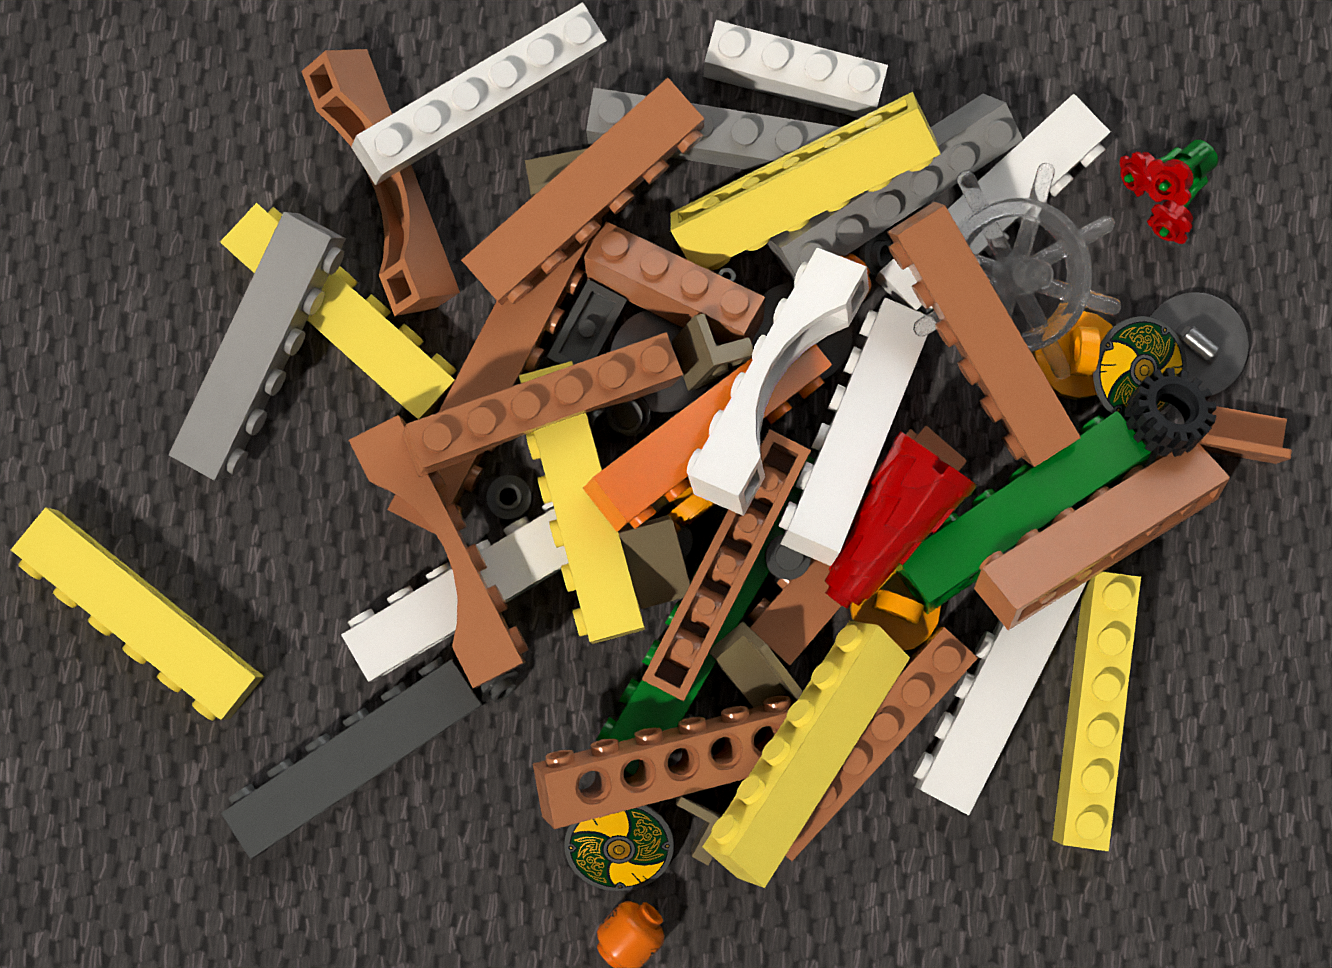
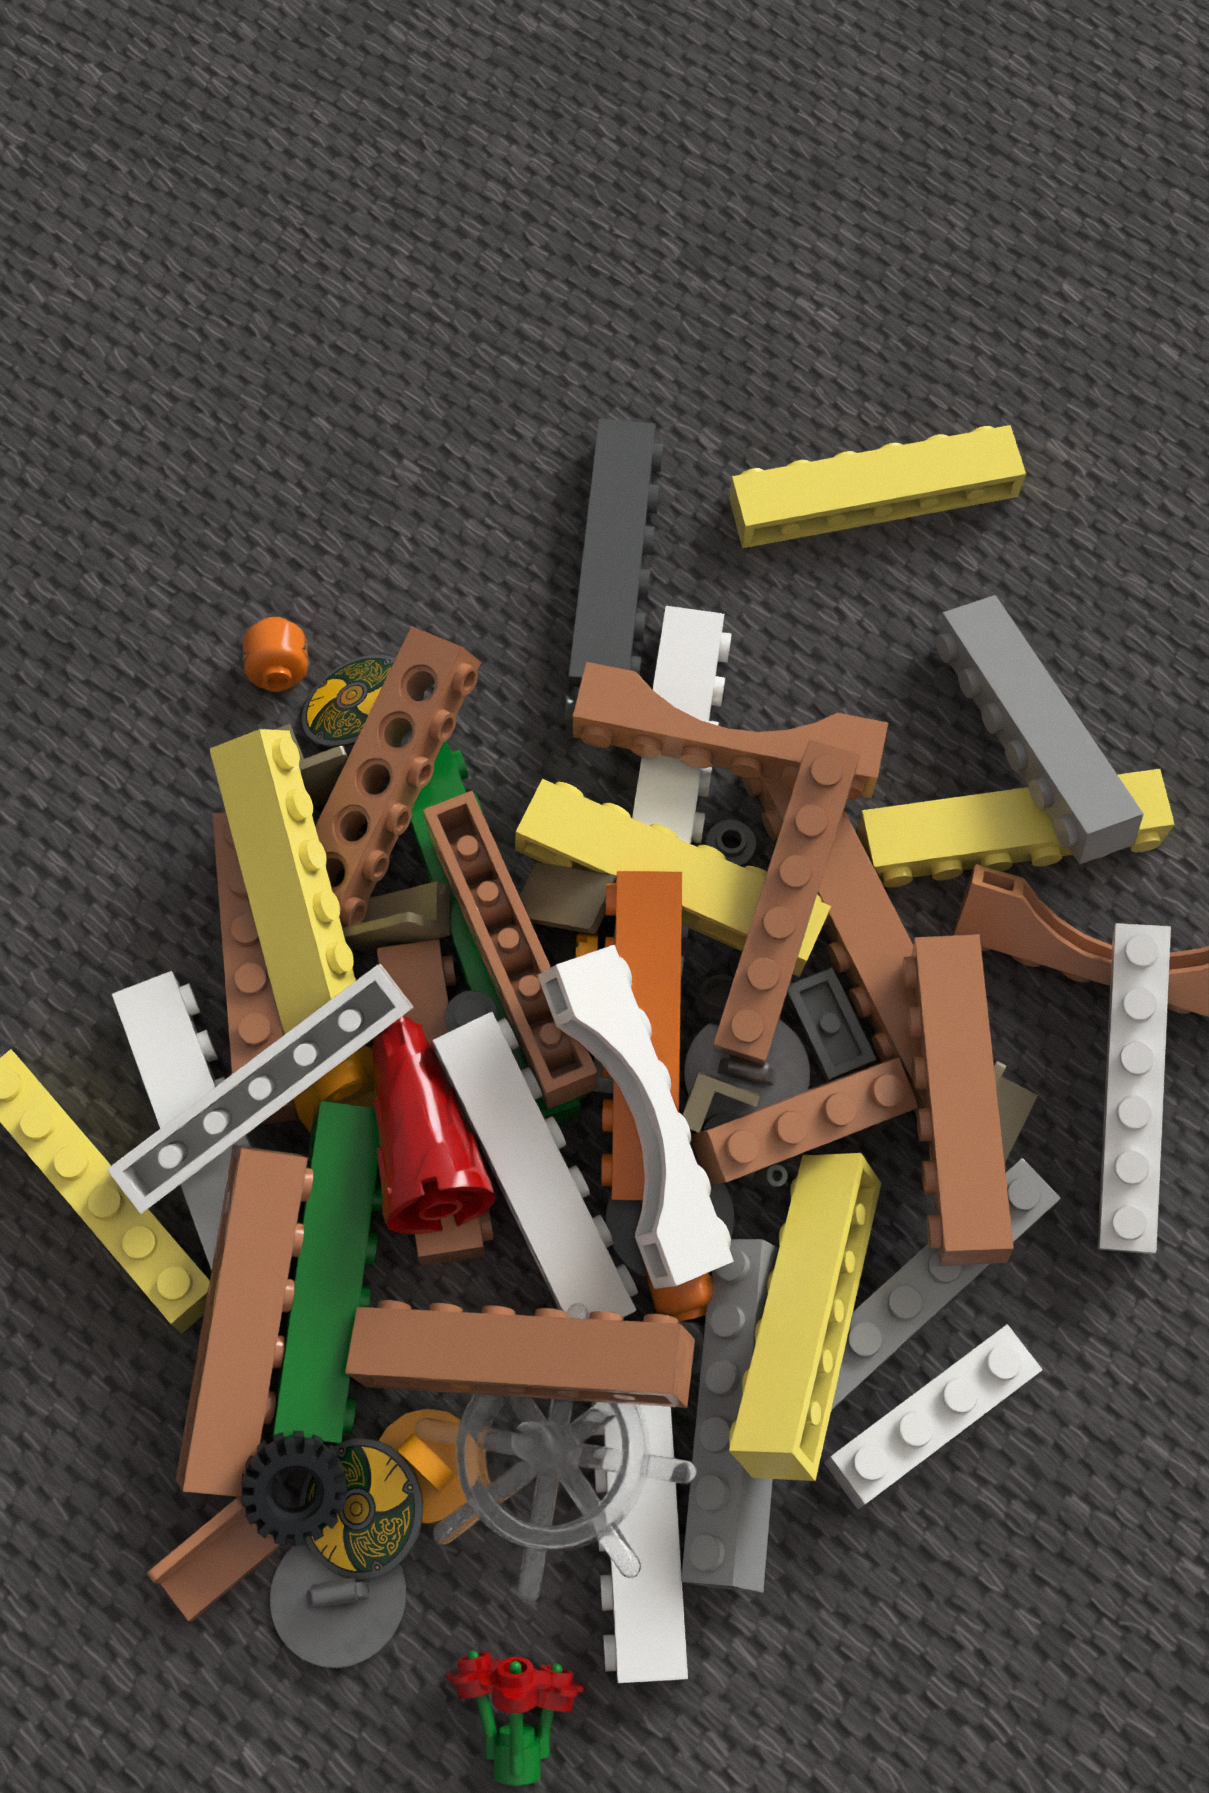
camera: 130 degrees right, 15 degrees down
(958, 640) = (260, 1088): none -> white brick

